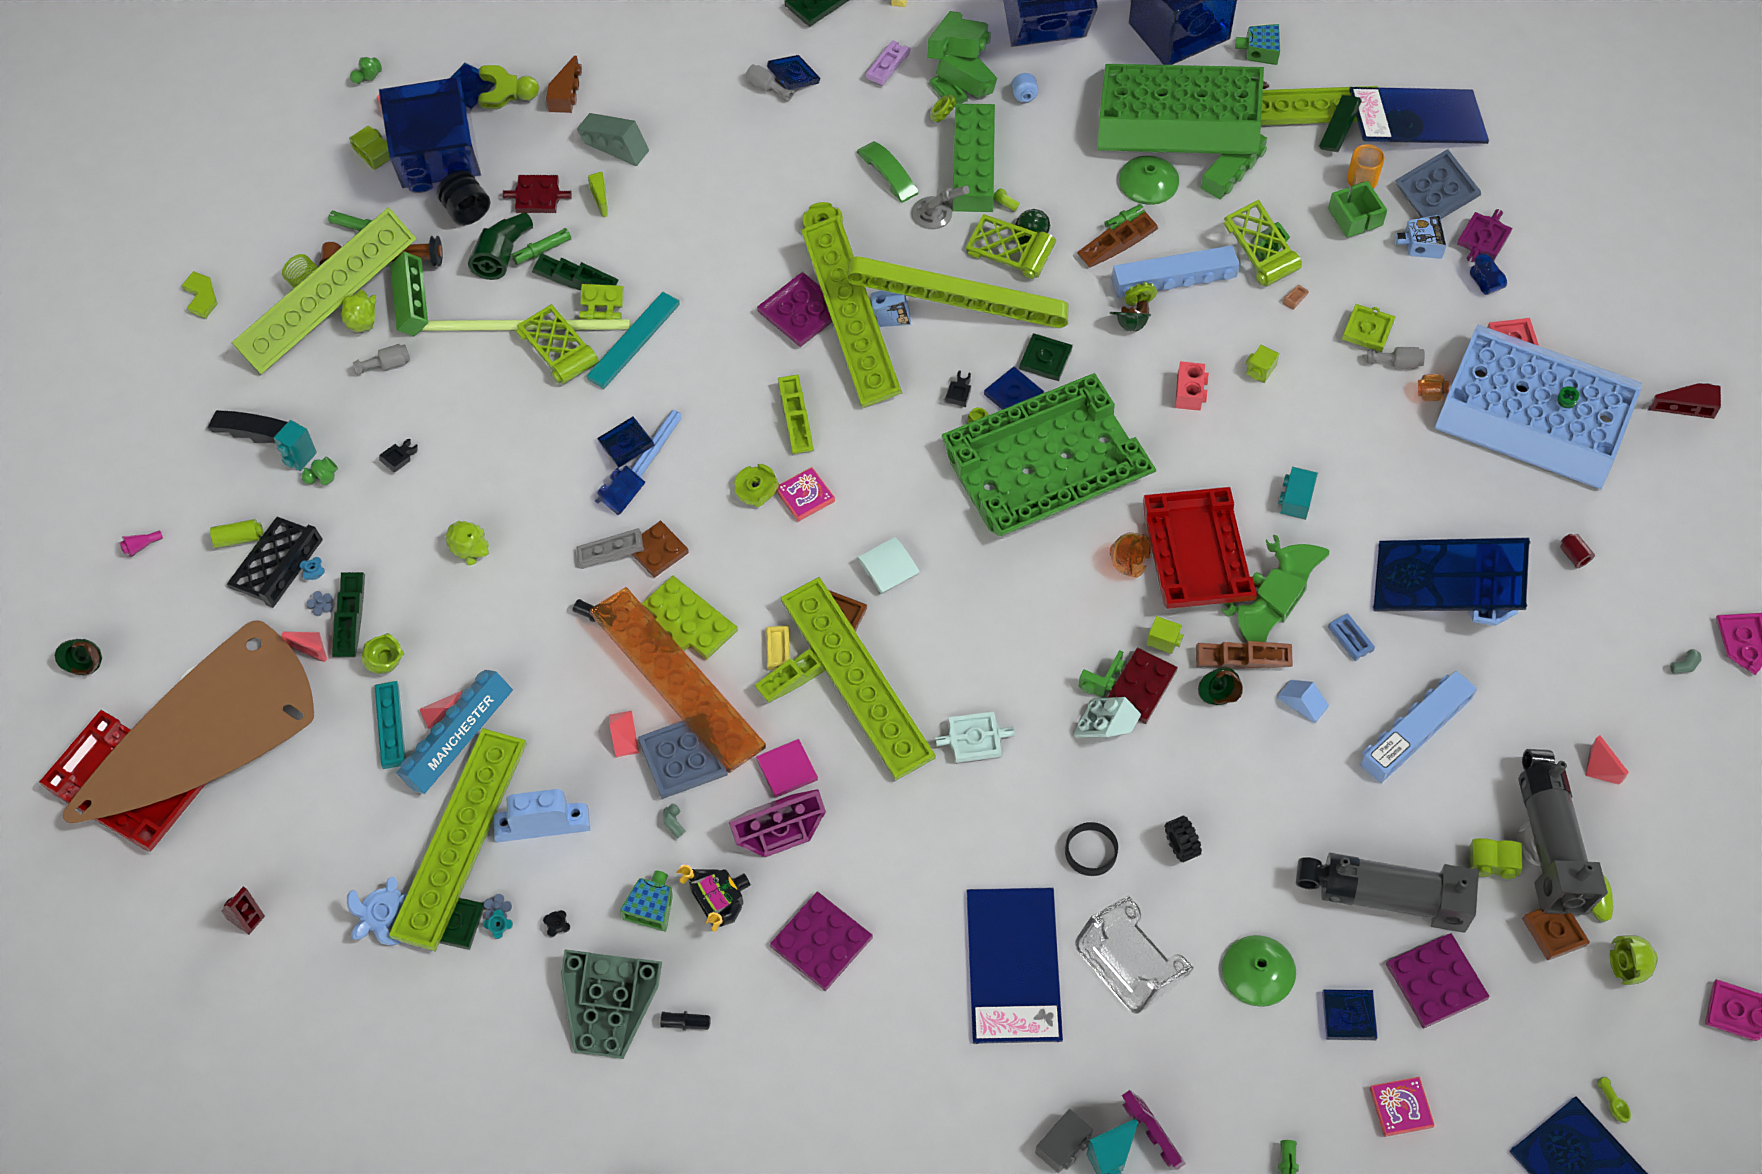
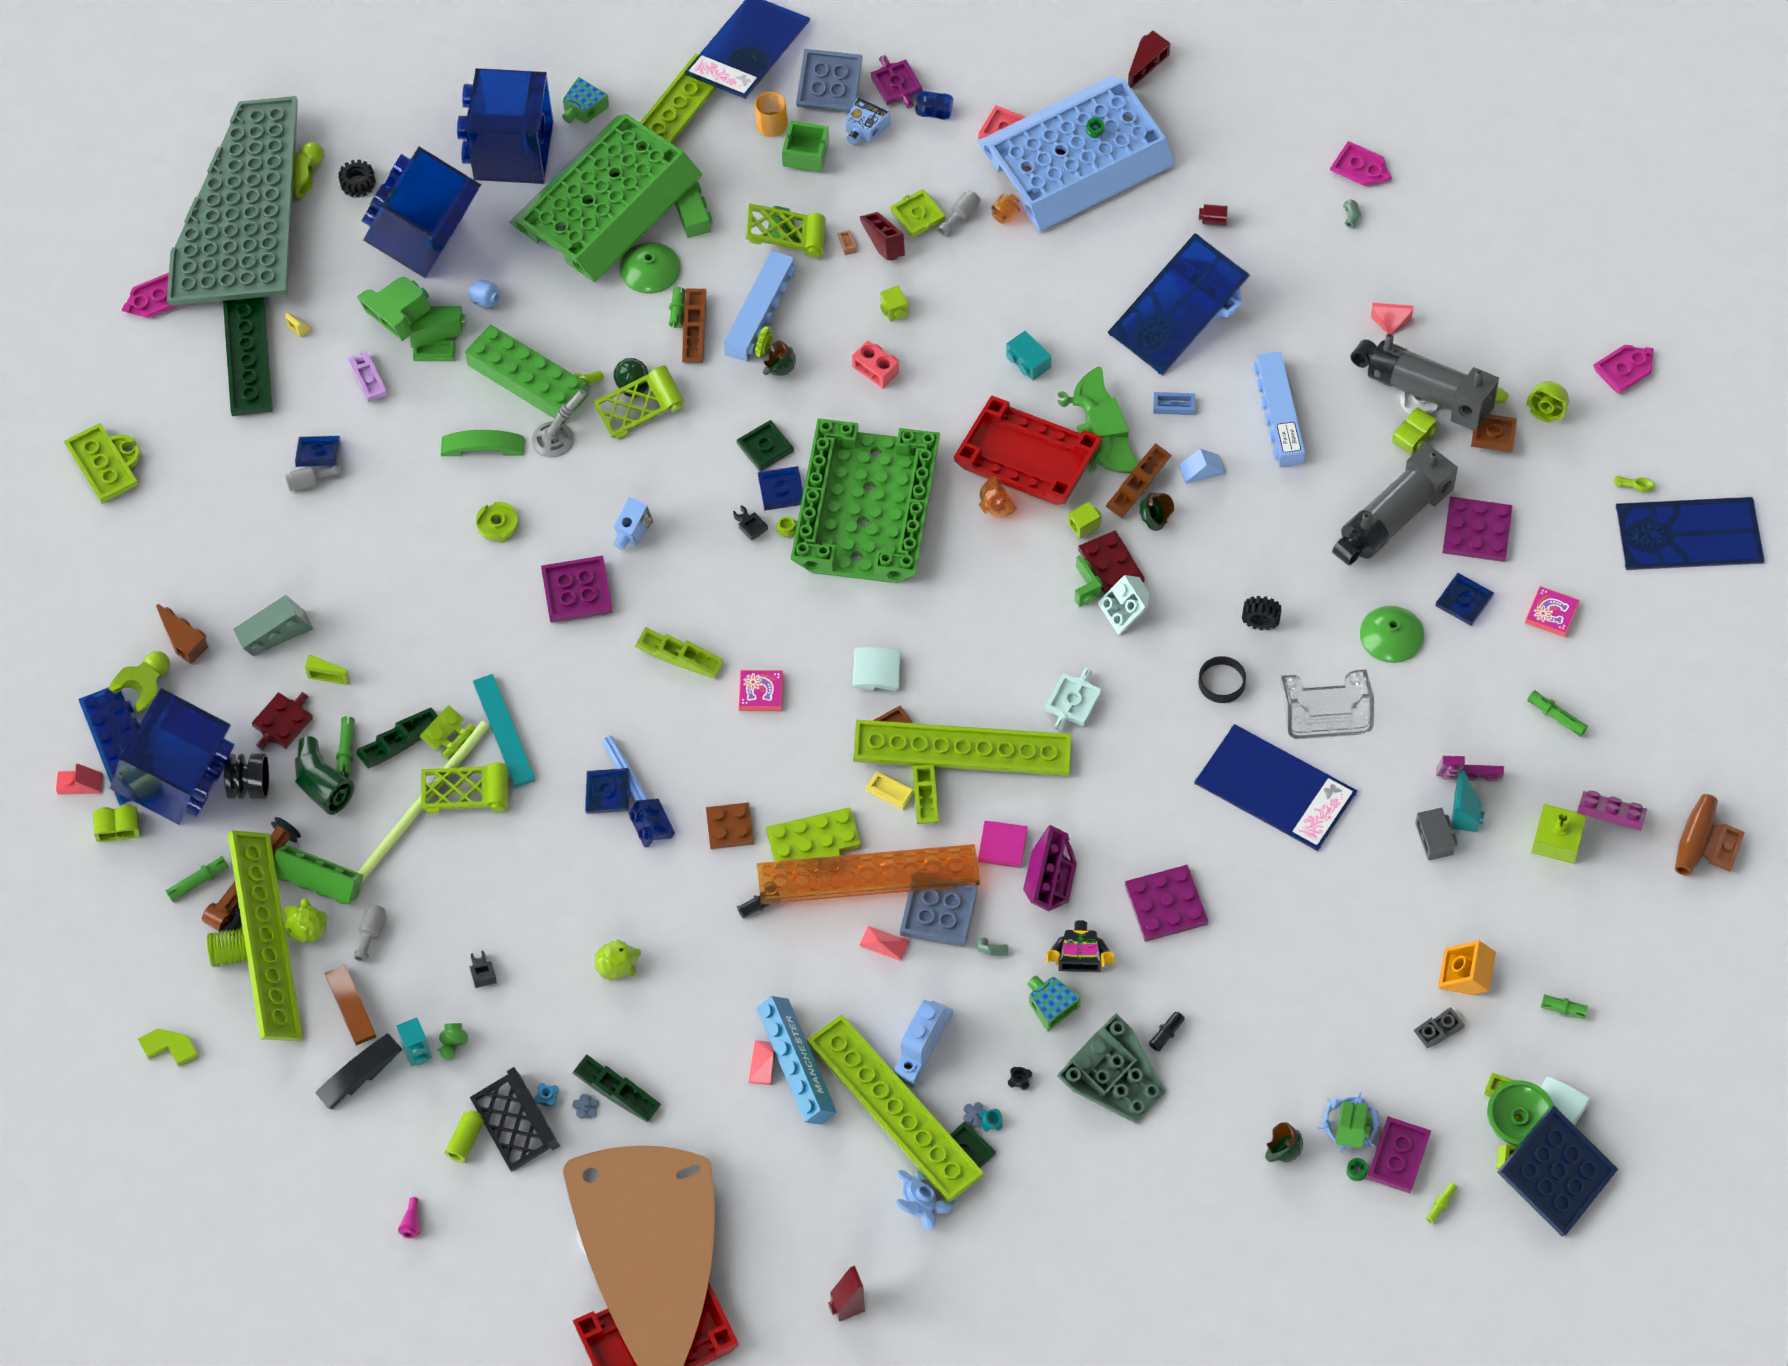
camera: 55 degrees left, 0 degrees up
(78, 656) = (502, 1316): dark green piece -> none
(304, 388) = (350, 1005): none -> dark orange slope
(307, 643) = (622, 1132): coral slope -> none
(367, 70) = (18, 781): bright green animal -> none
(382, 654) = (679, 1080): lime hair -> none
(390, 724) = (747, 1110): teal tile -> none
(610, 548) = (705, 858): light grey tile -> none
(756, 495) = (717, 713): lime plate -> none
(851, 313) = (616, 550): lime plate -> none
(942, 108) = (449, 367): lime gear -> none
(957, 292) = (666, 463): lime beam -> none
(1322, 316) = (884, 235): none -> dark red slope
(1340, 123) = (713, 102): dark green tile -> none

